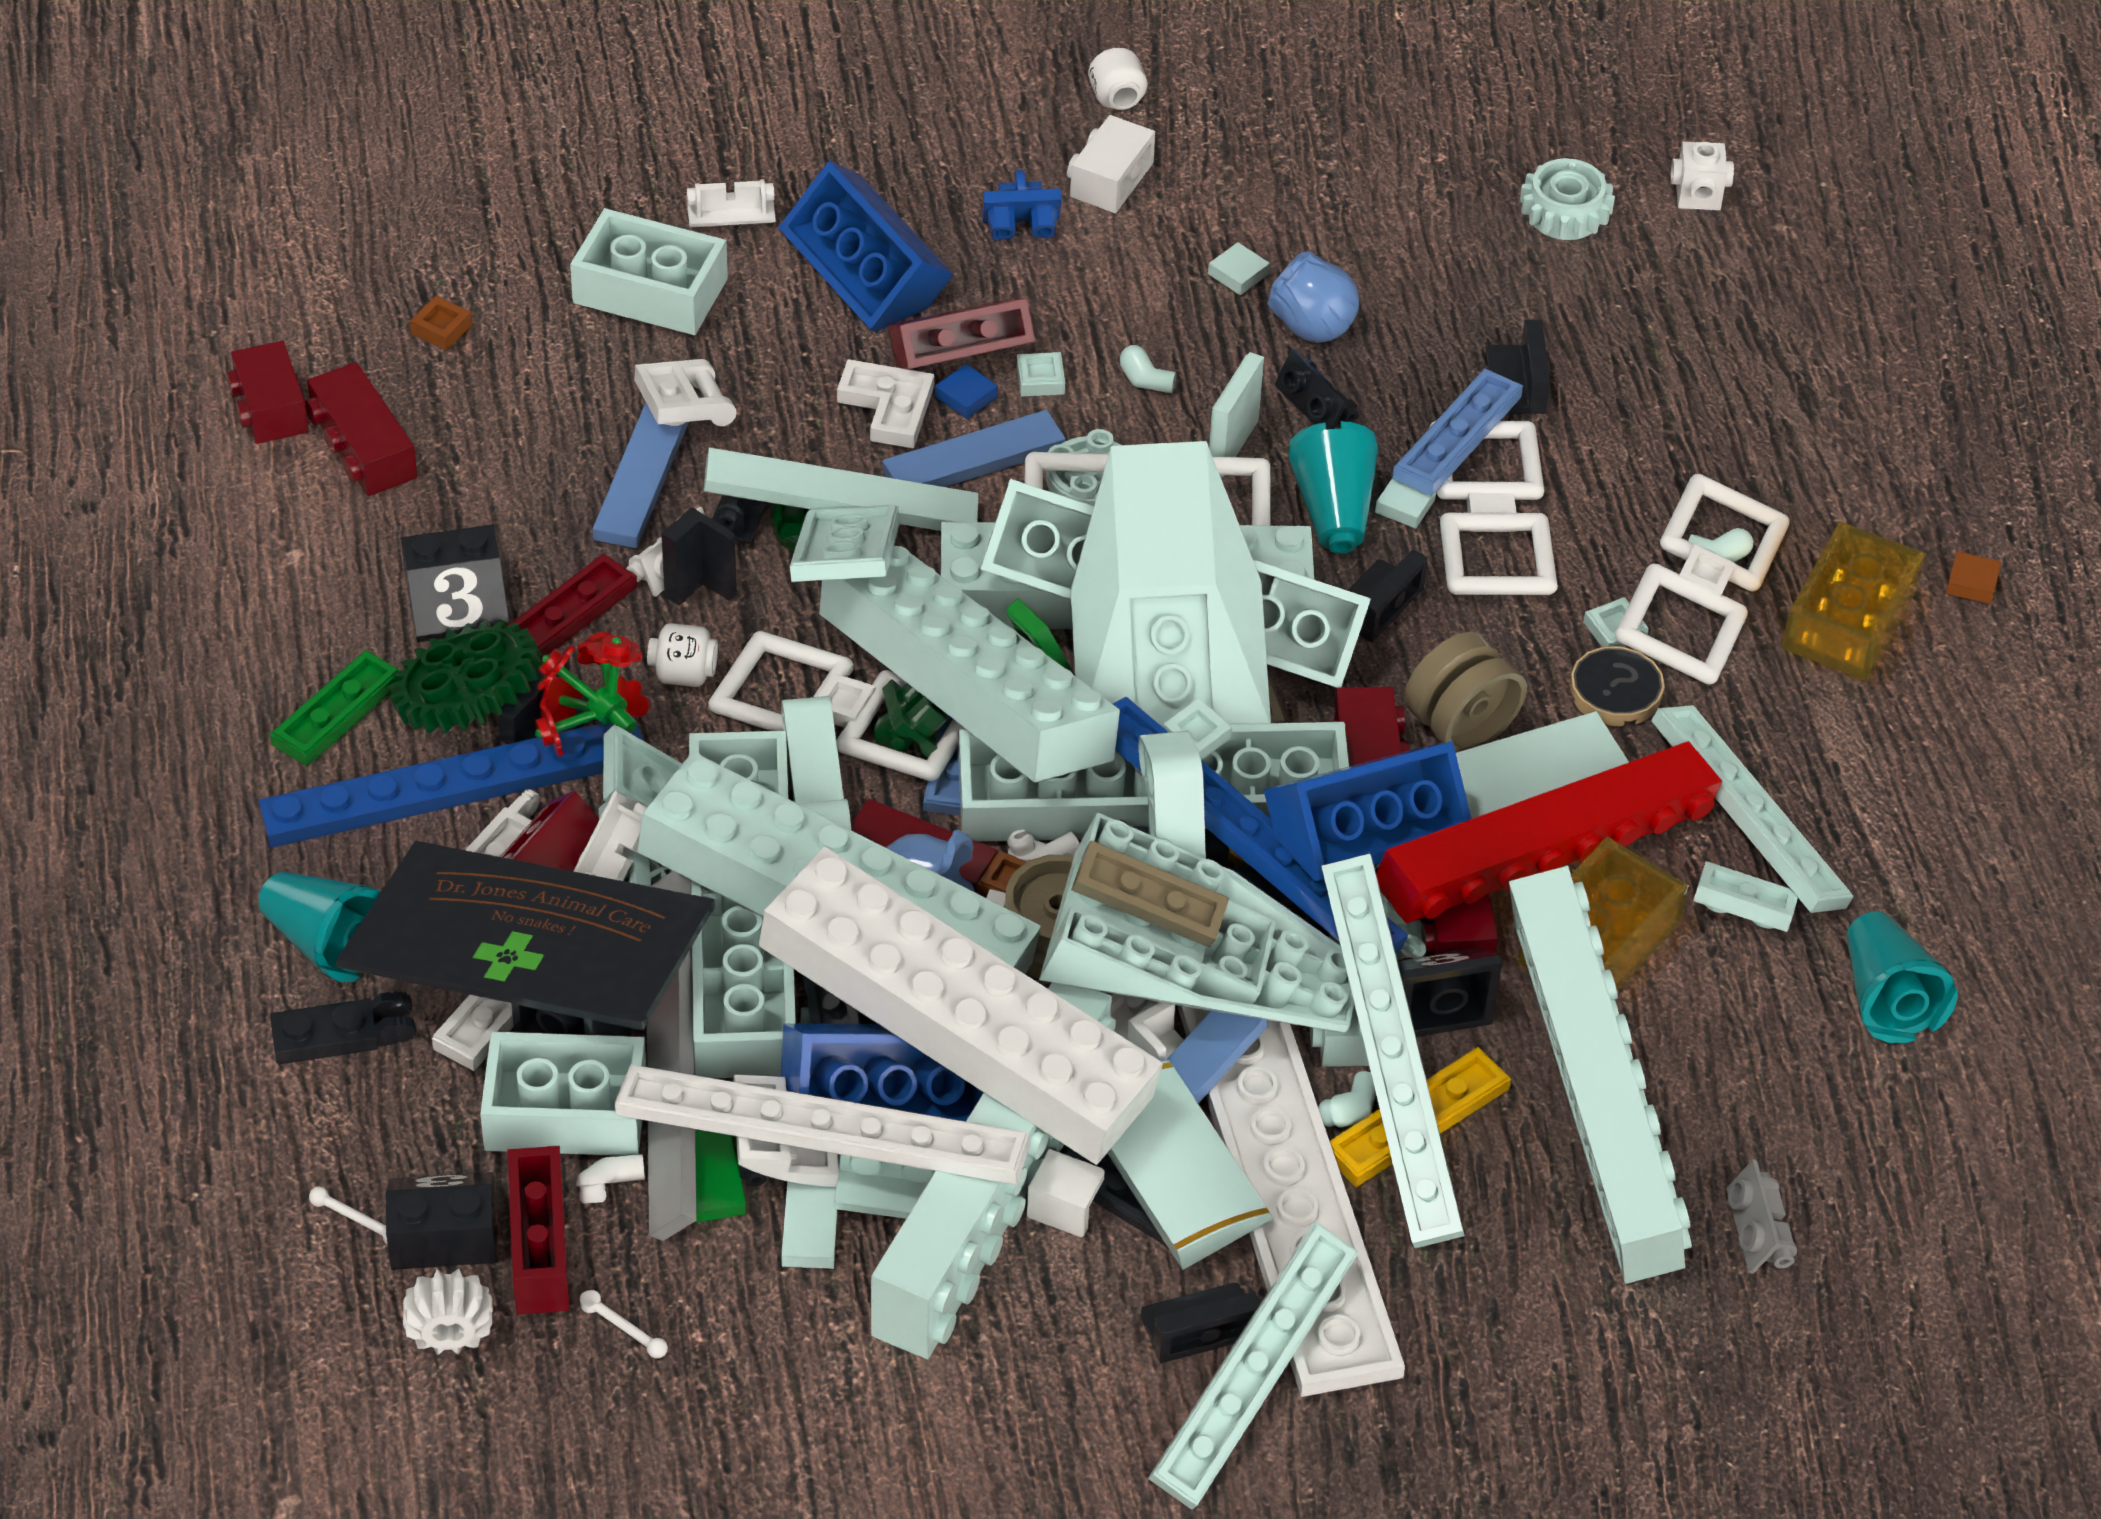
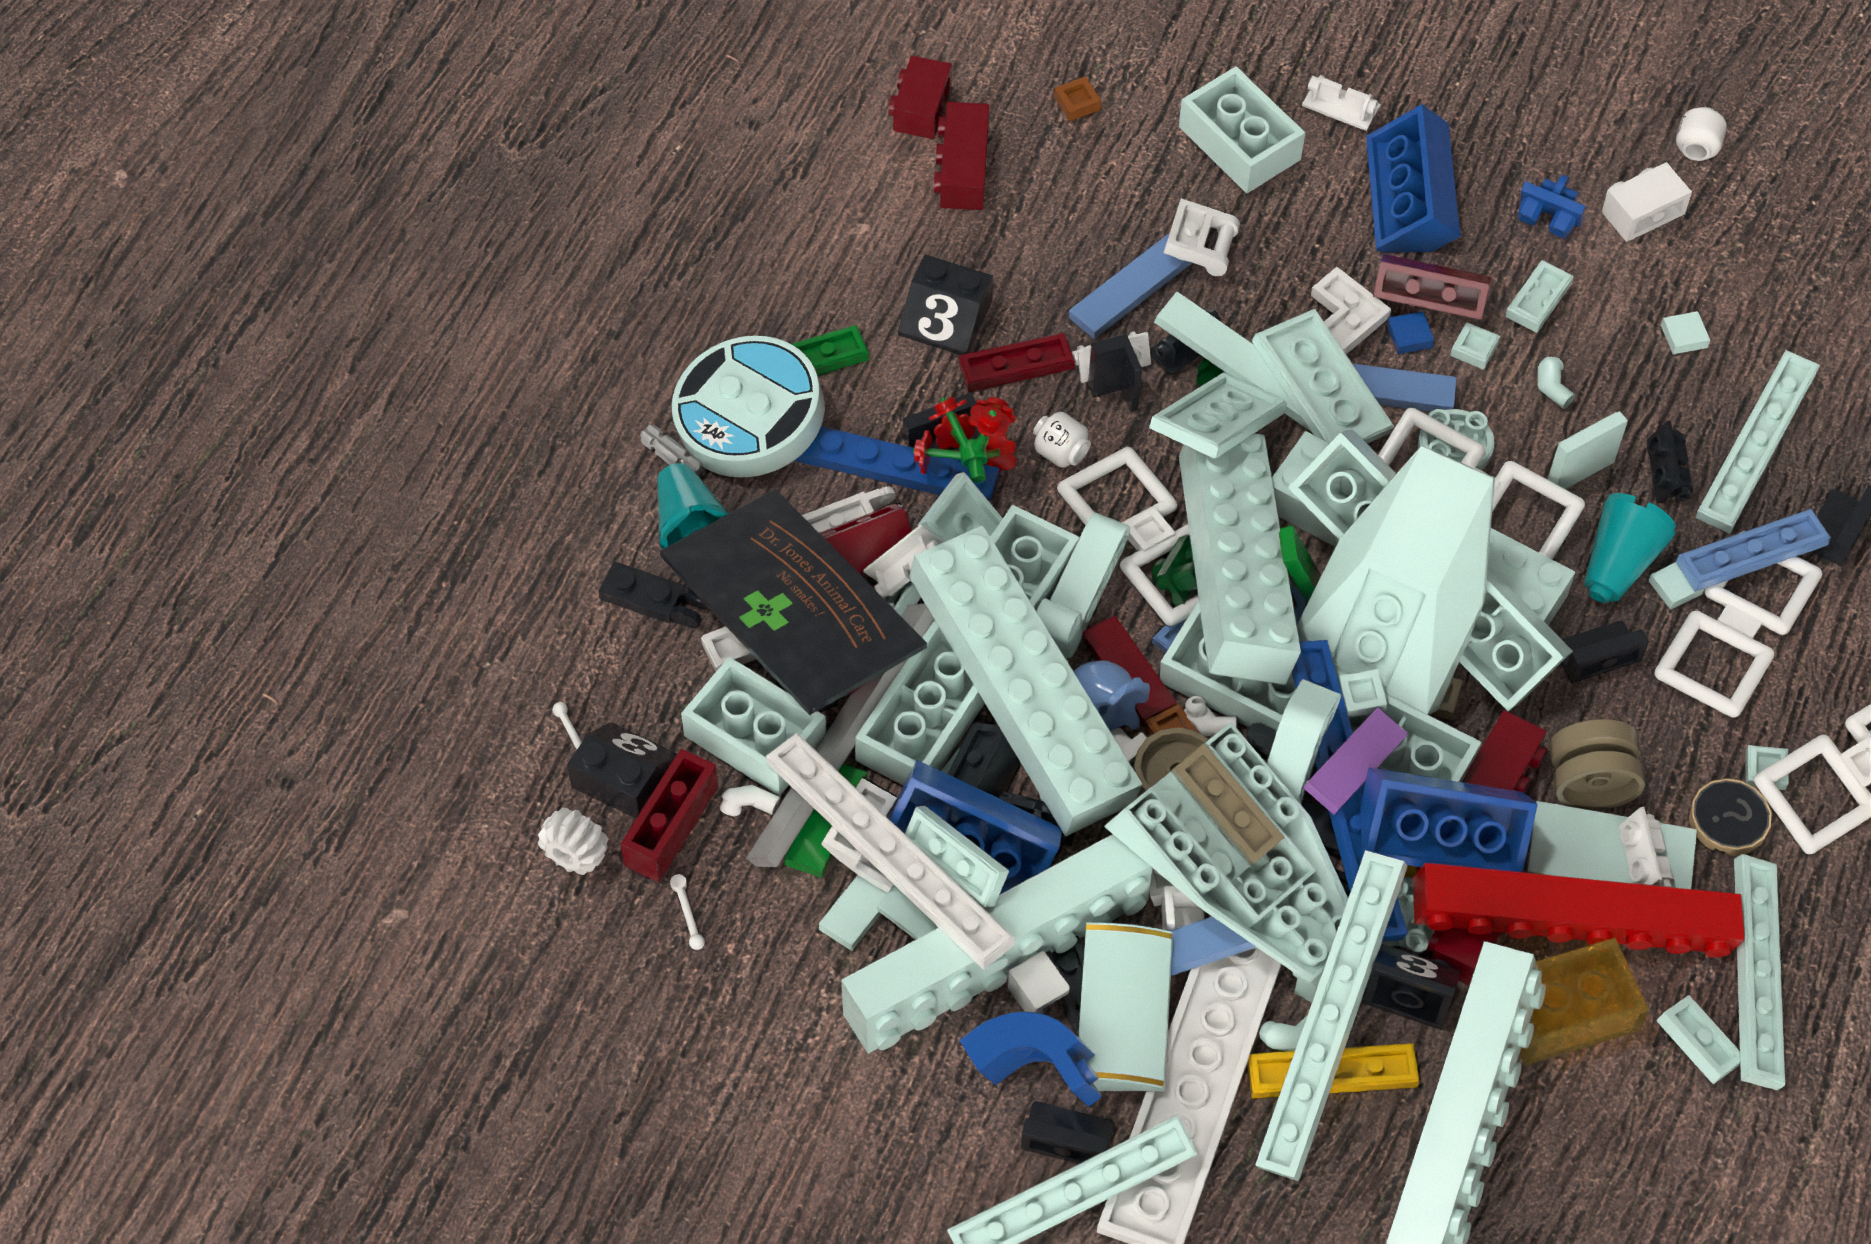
camera: 35 degrees right, 10 degrees up
(240, 871) = (668, 448): none -> light grey axle
(310, 781) = (748, 406): none -> brick
(465, 676) = (901, 380): dark green gear -> none
(907, 1087) = (957, 856): none -> light aqua tile
(914, 469) = (1321, 379): none -> light aqua tile
(960, 1004) = (1030, 818): white brick -> none
(1071, 298) = (1539, 296): none -> light aqua plate
(1104, 1235) = (1029, 1037): none -> blue arch
(1240, 794) = (1350, 763): none -> medium lavender tile
(1314, 298) = (1717, 387): medium blue hair -> none
(1383, 337) = (1757, 442): none -> light aqua tile
(1562, 748) = (1641, 842): none -> white hinge
(1897, 980) = (1764, 1170): teal cone -> none

